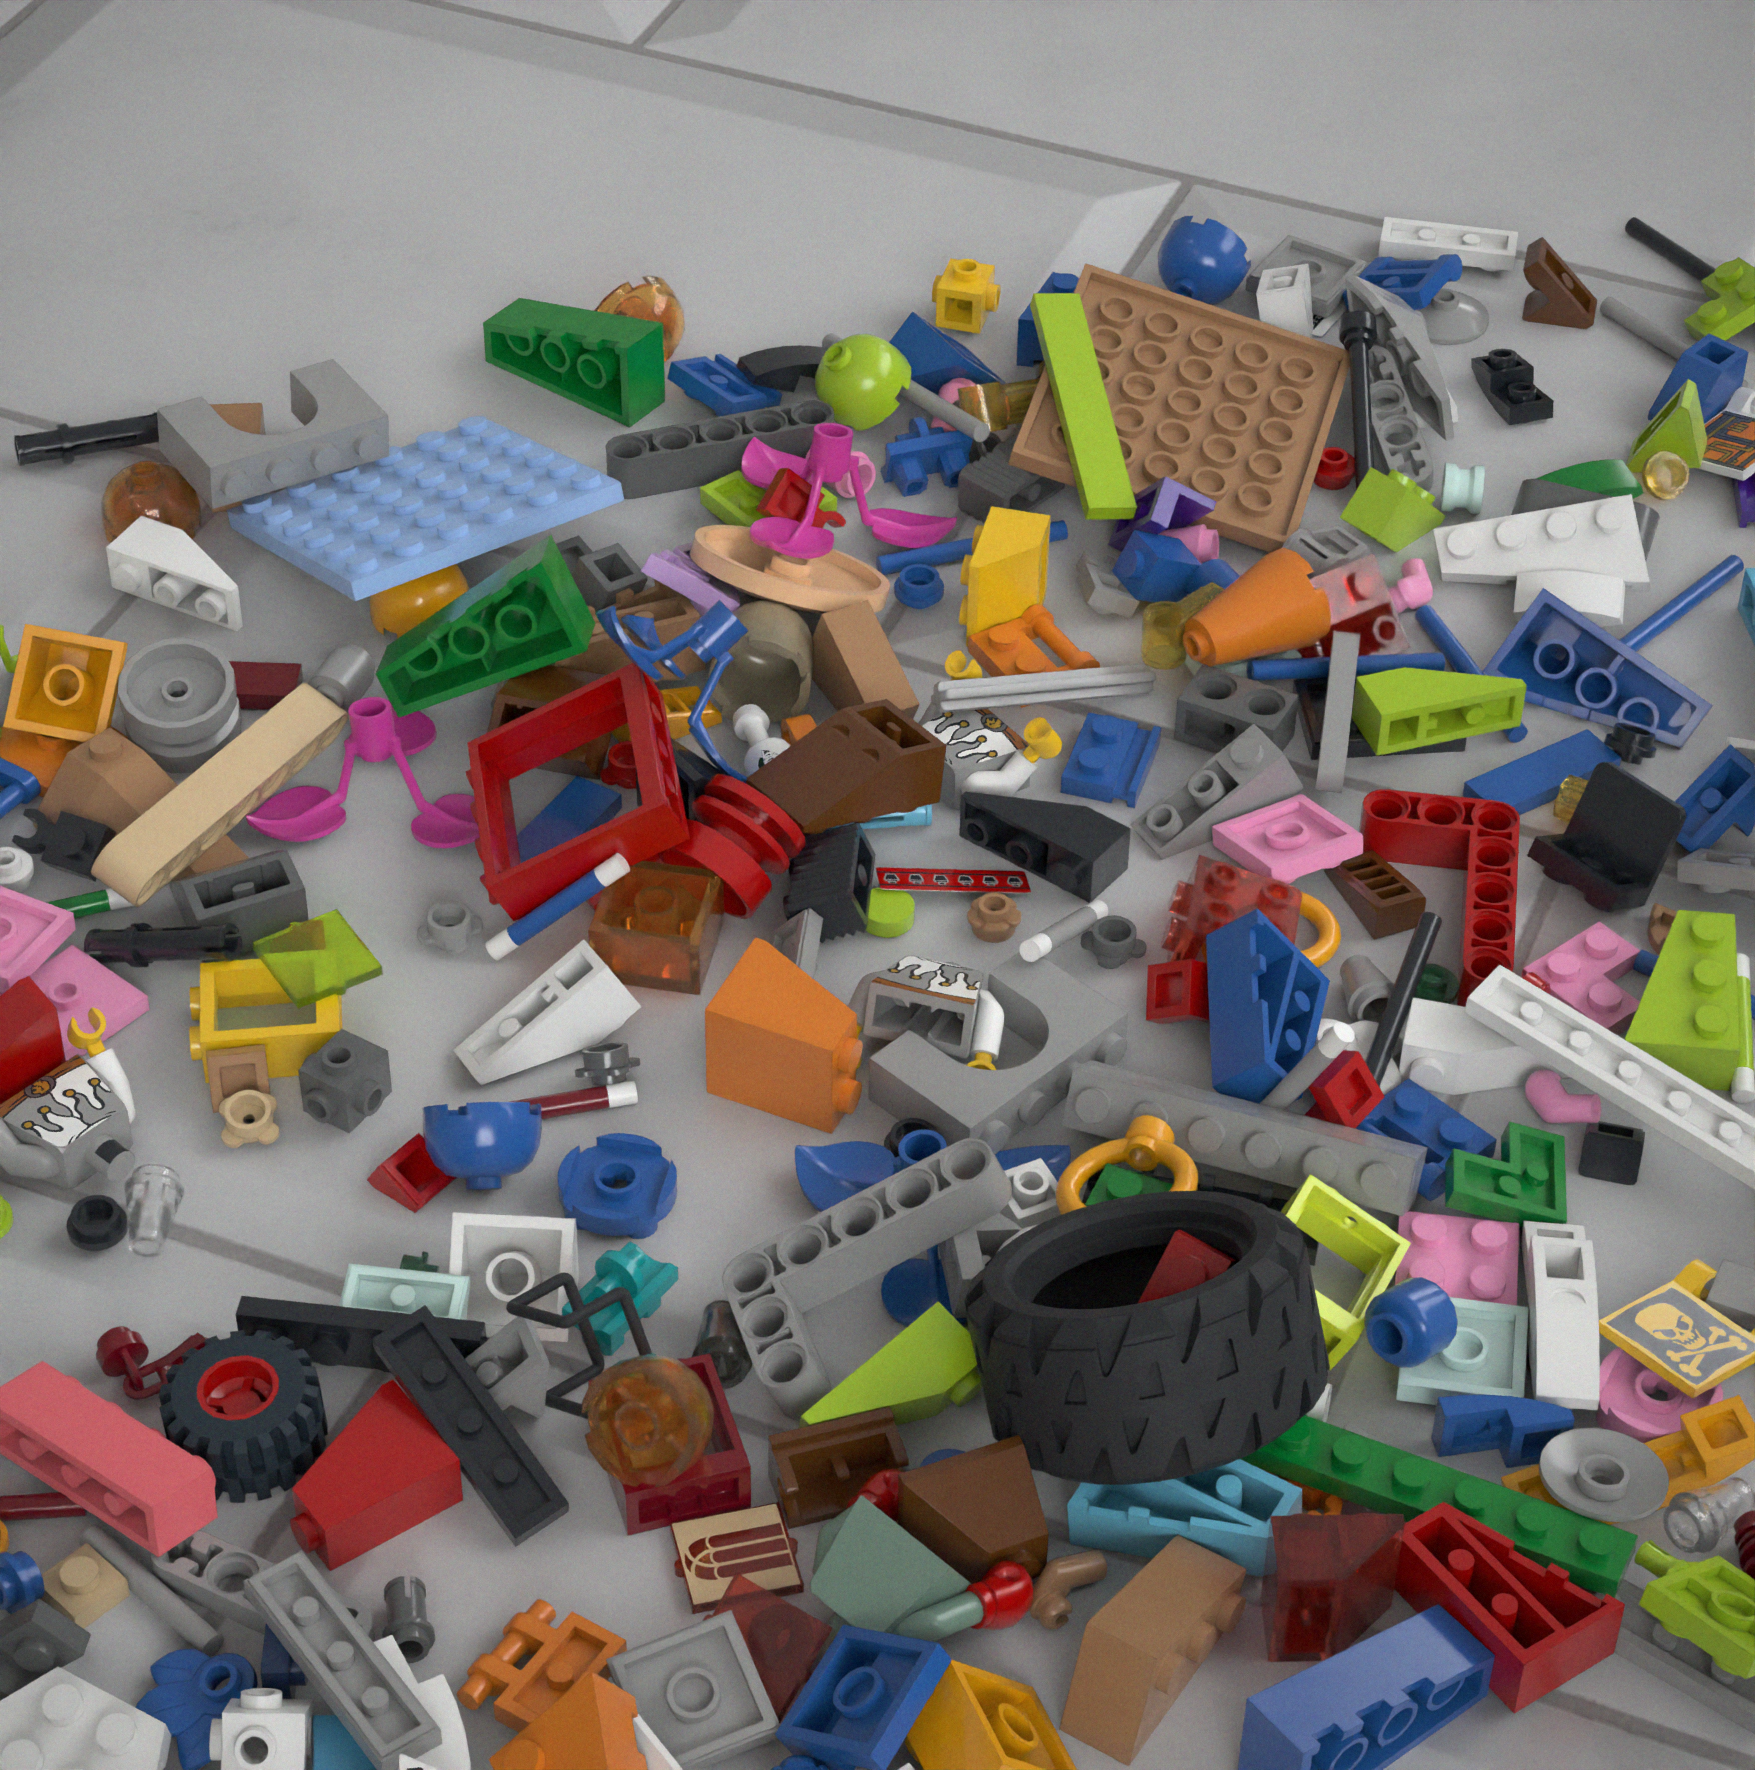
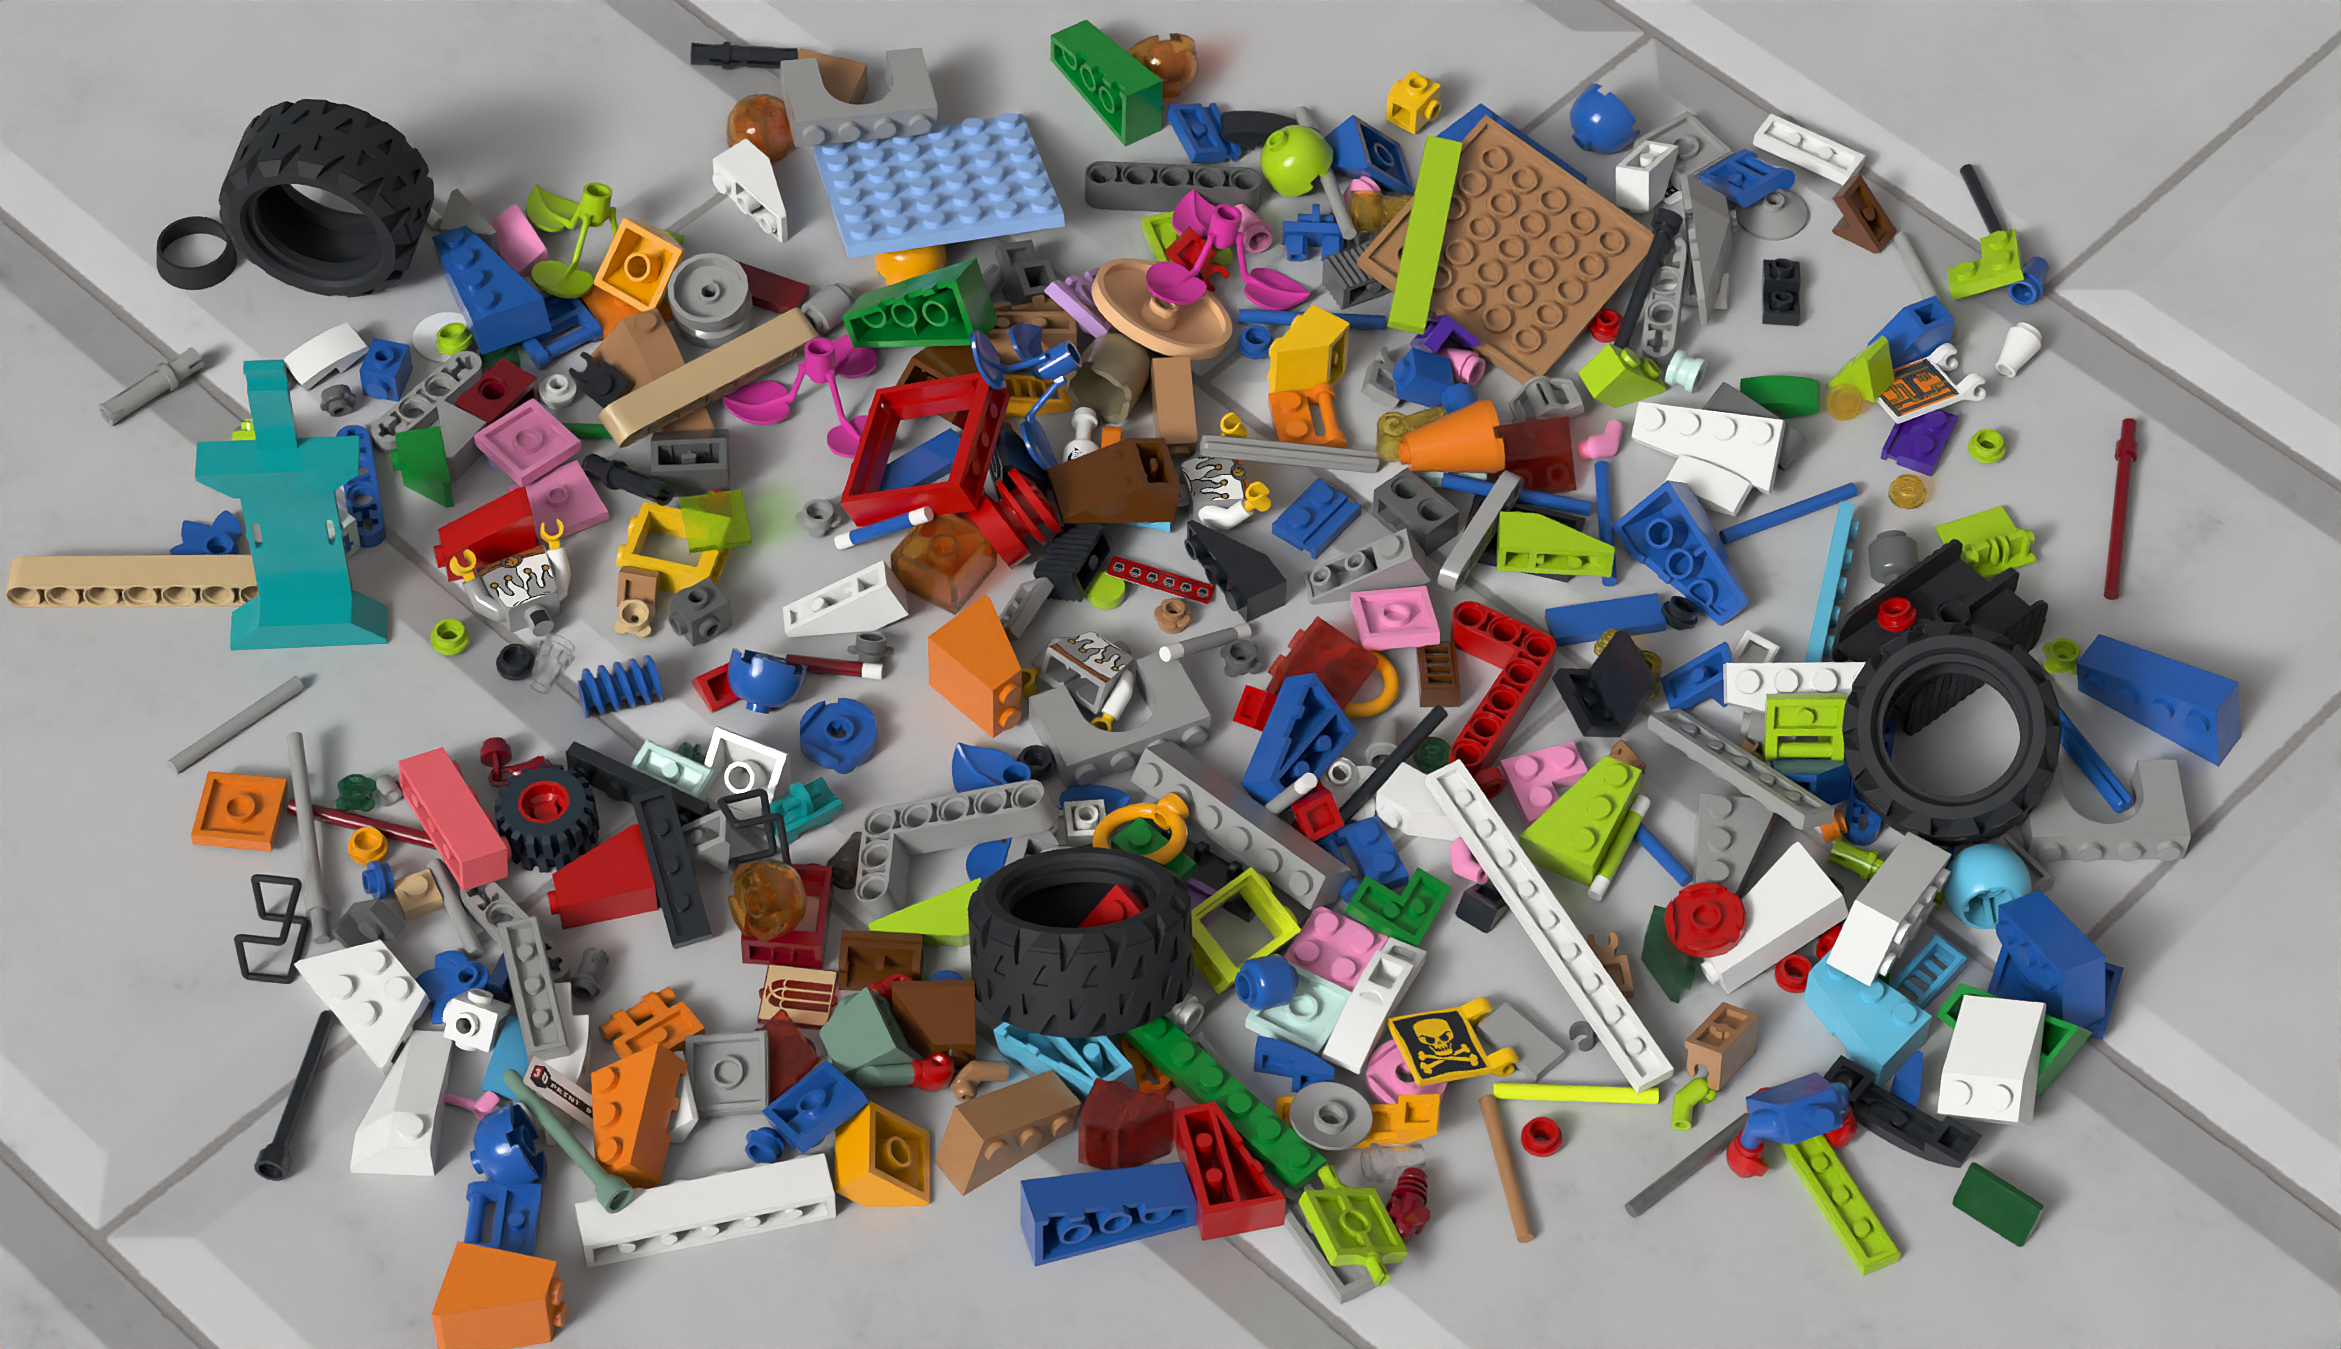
camera: 20 degrees right, 10 degrees up
(269, 1204) = (619, 685): none -> blue piece

